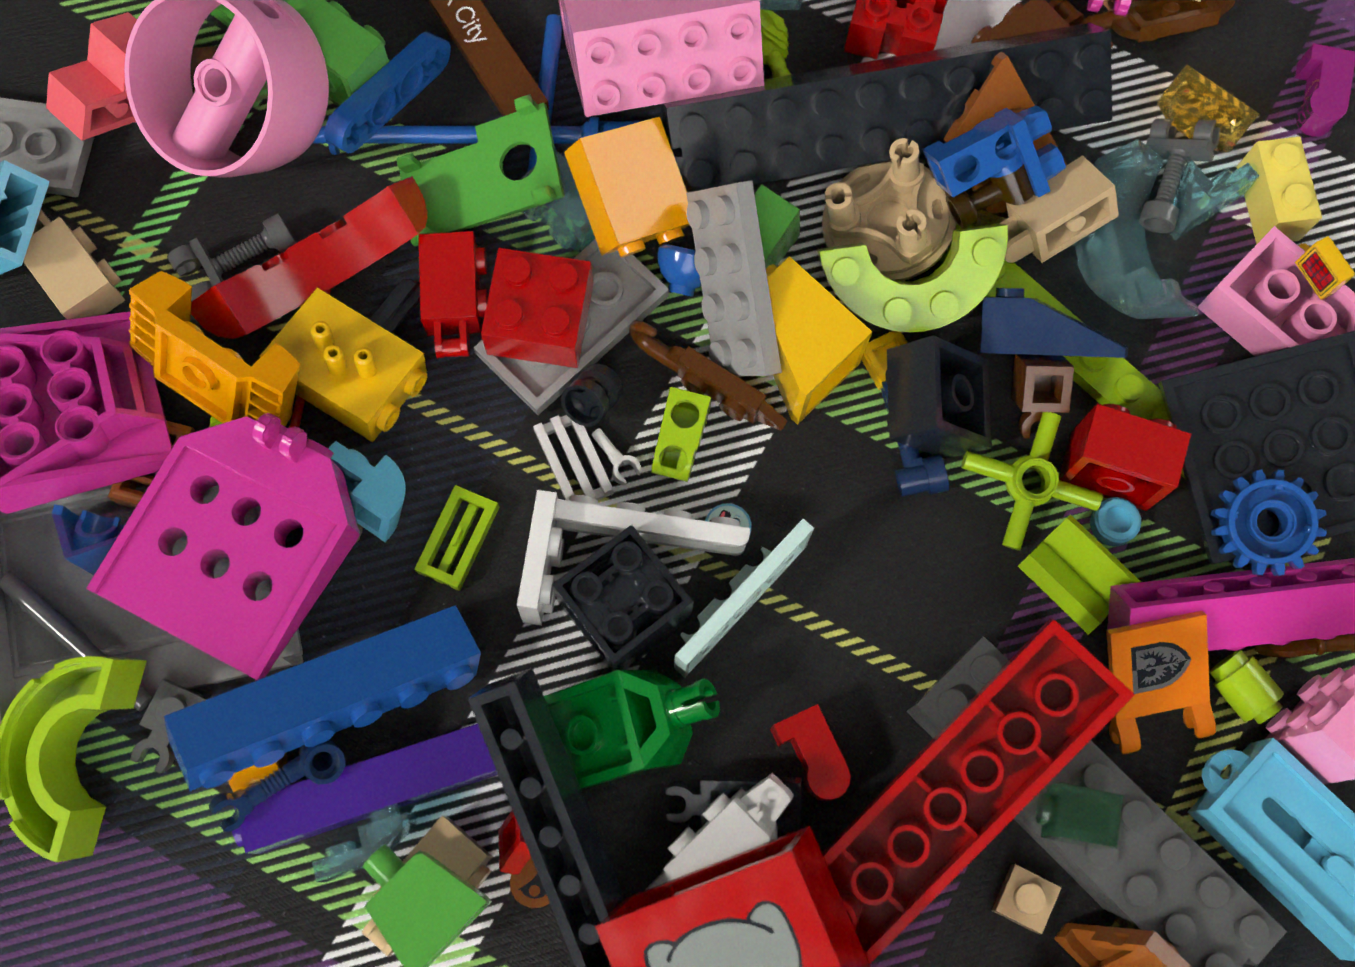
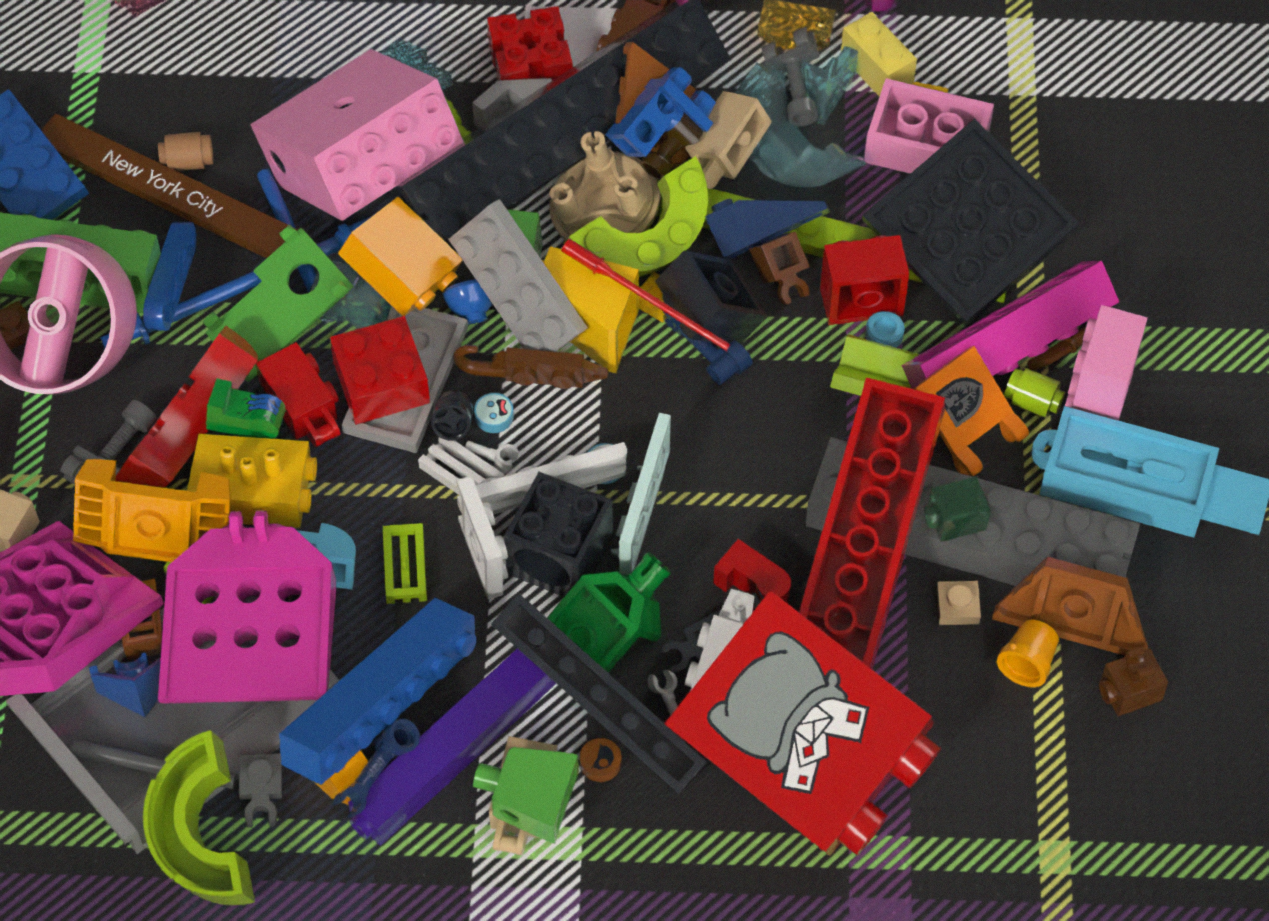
camera: 25 degrees left, 15 degrees down
(371, 286) = (243, 412): none -> green leg
(386, 828) = (453, 807): clear light blue slope -> none
(512, 847) = (572, 728): red plate -> none
(642, 409) = (494, 413): none -> tile
(648, 838) = (667, 692): none -> white hand
(680, 433) = (533, 412): lime leg -> none
(829, 310) = (600, 267): none -> red piece
(842, 49) = (503, 96): none -> light grey slope
(1050, 482) = (804, 340): lime bar -> none
(1295, 515) = (991, 251): blue gear -> none
(1325, 267) = (933, 88): yellow tile -> none

